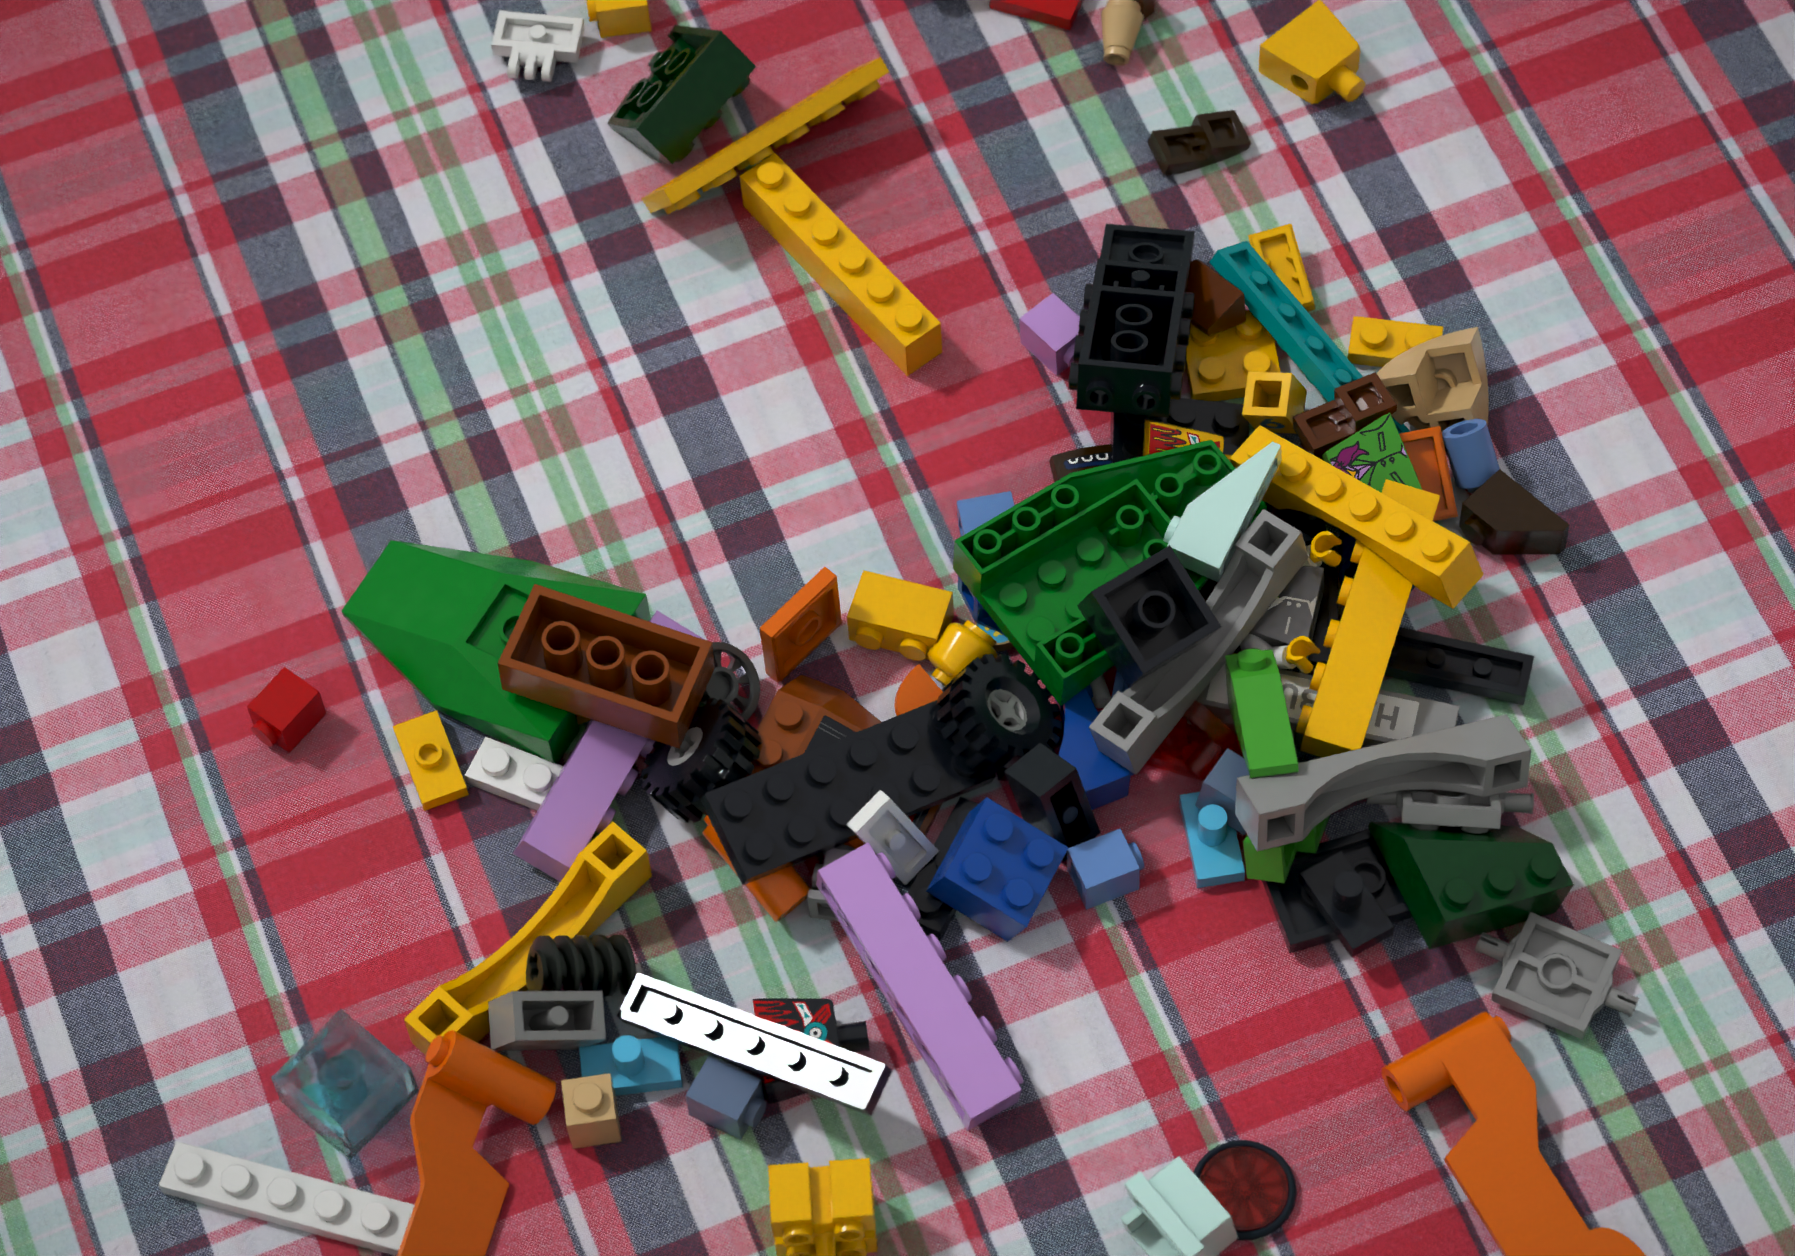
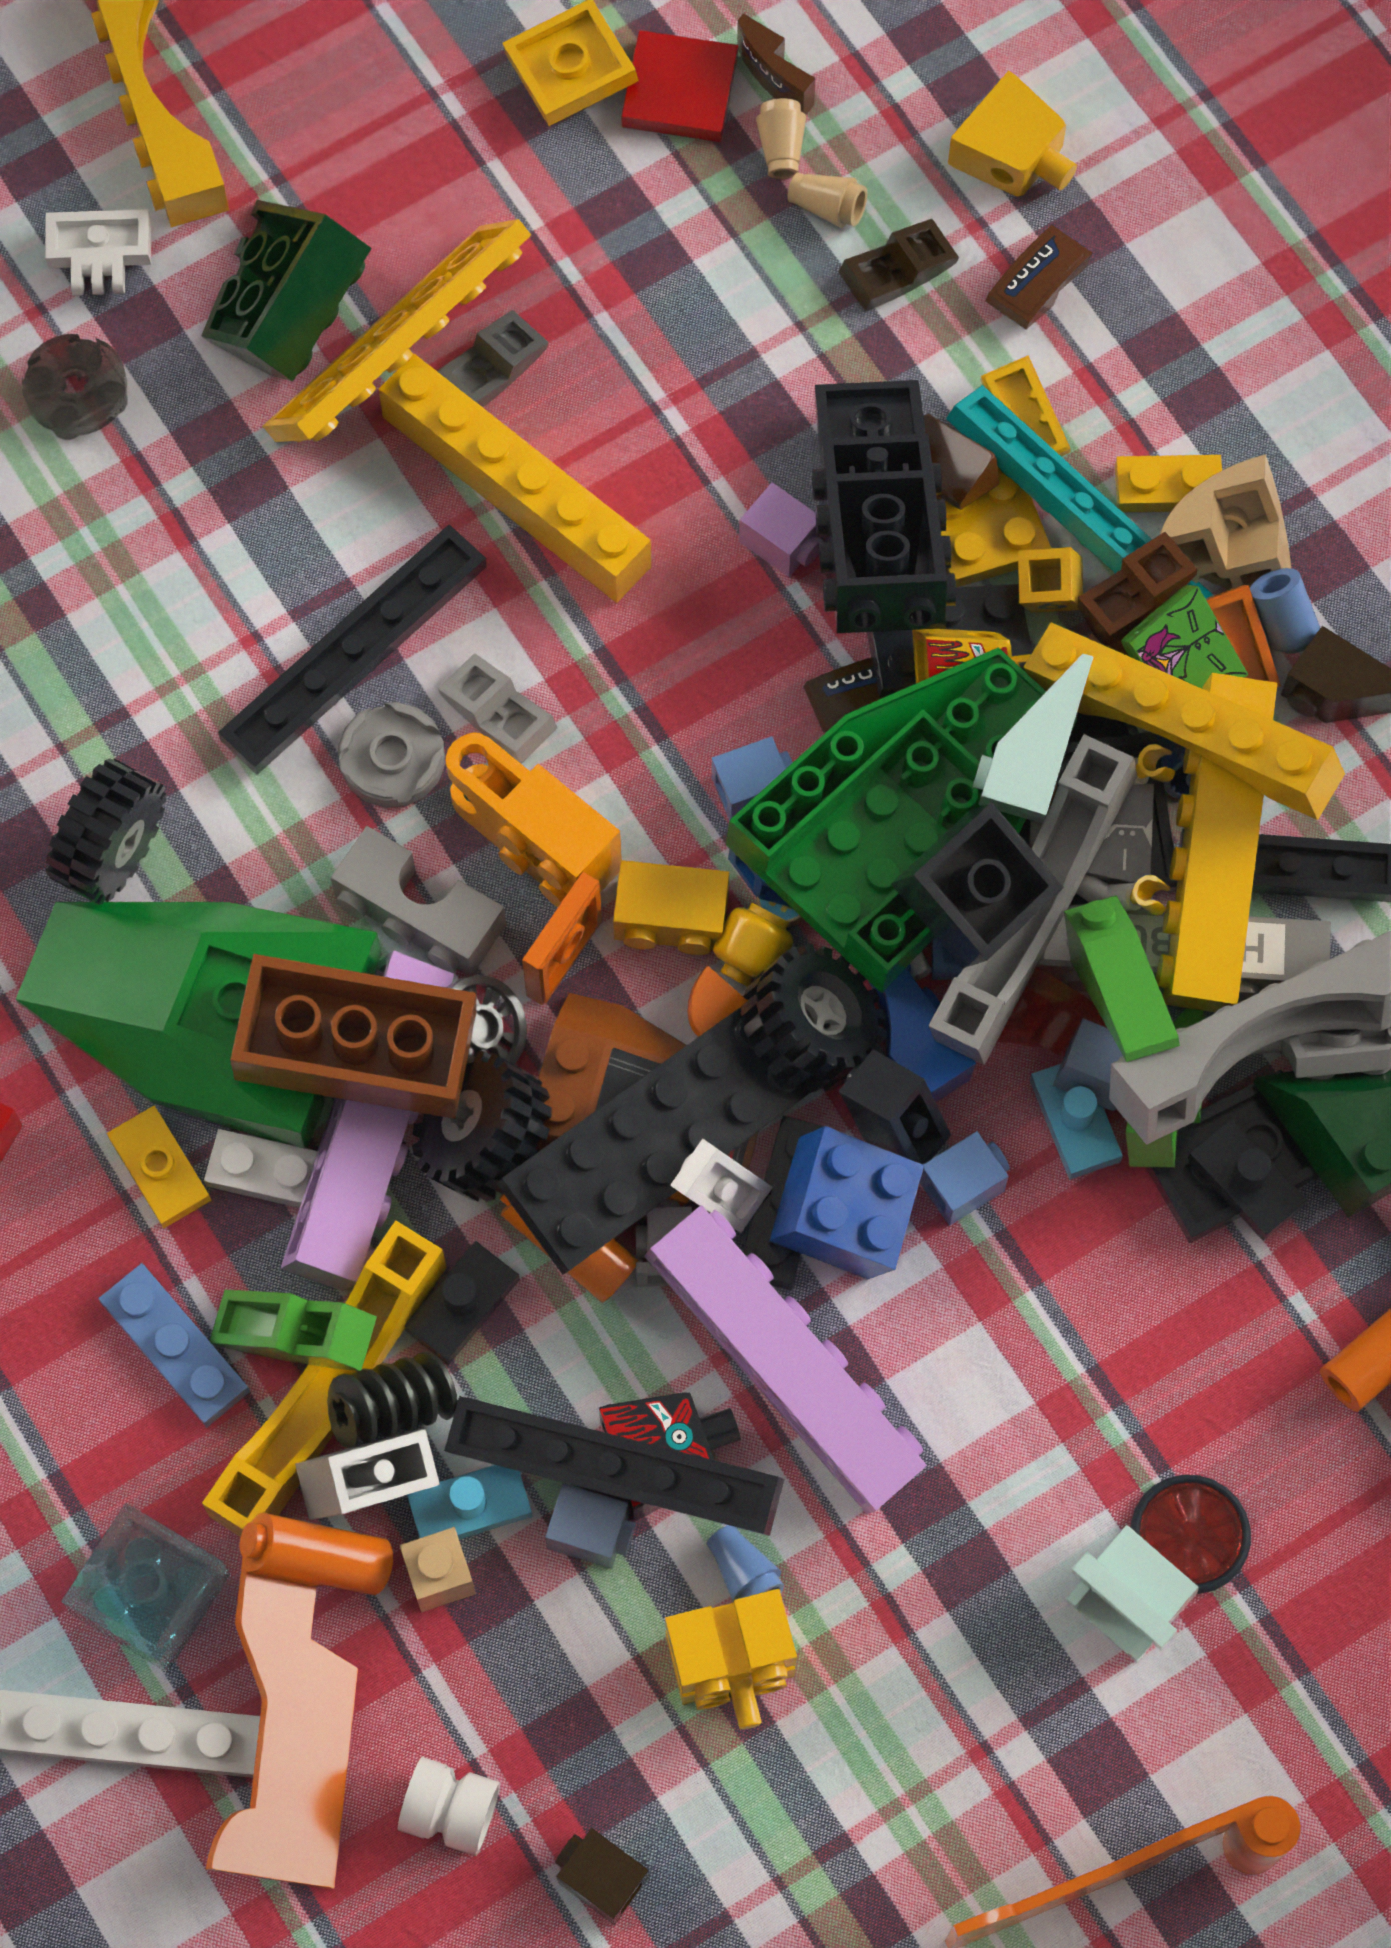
camera: 15 degrees left, 10 degrees up
(412, 902) = (174, 1345): none -> medium blue plate
(441, 485) = (105, 831): none -> black wheel
(496, 167) = (80, 412): none -> clear smoke plate
(512, 898) = (293, 1329): none -> bright green slope
(659, 905) = (462, 1302): none -> black tile
(677, 379) = (352, 649): none -> black plate
(693, 467) = (391, 755): none -> light grey tile
(712, 608) = (453, 931): none -> light grey arch
(788, 444) = (496, 708): none -> light grey slope
(795, 524) = (532, 819): none -> light orange brick
(847, 171) = (496, 359): none -> dark grey slope
(848, 1143) = (742, 1564): none -> medium blue cone
(1151, 82) = (829, 197): none -> tan cone
(1314, 165) = (1038, 276): none -> reddish brown slope

